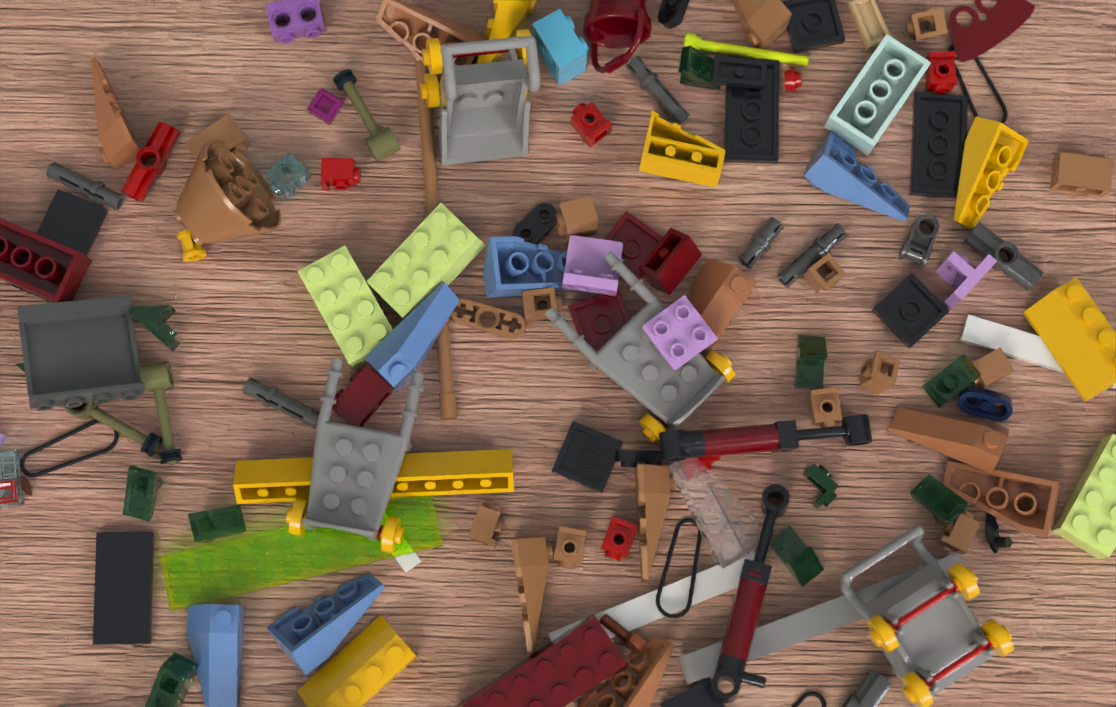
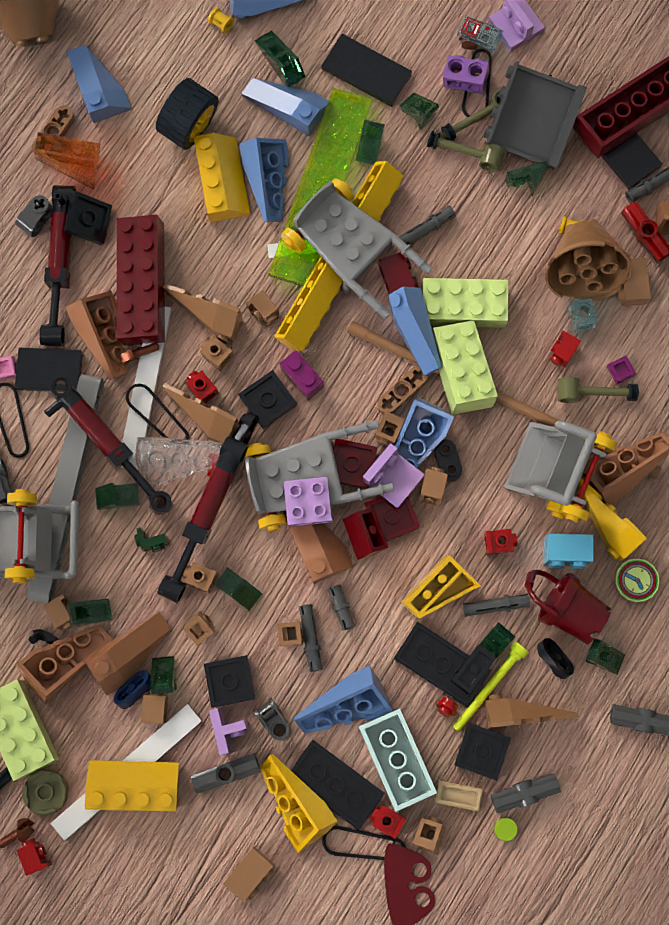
camera: 130 degrees right, 0 degrees up
(75, 462) = (464, 79): none -> medium lavender brick
(538, 434) = (302, 375): none -> magenta brick

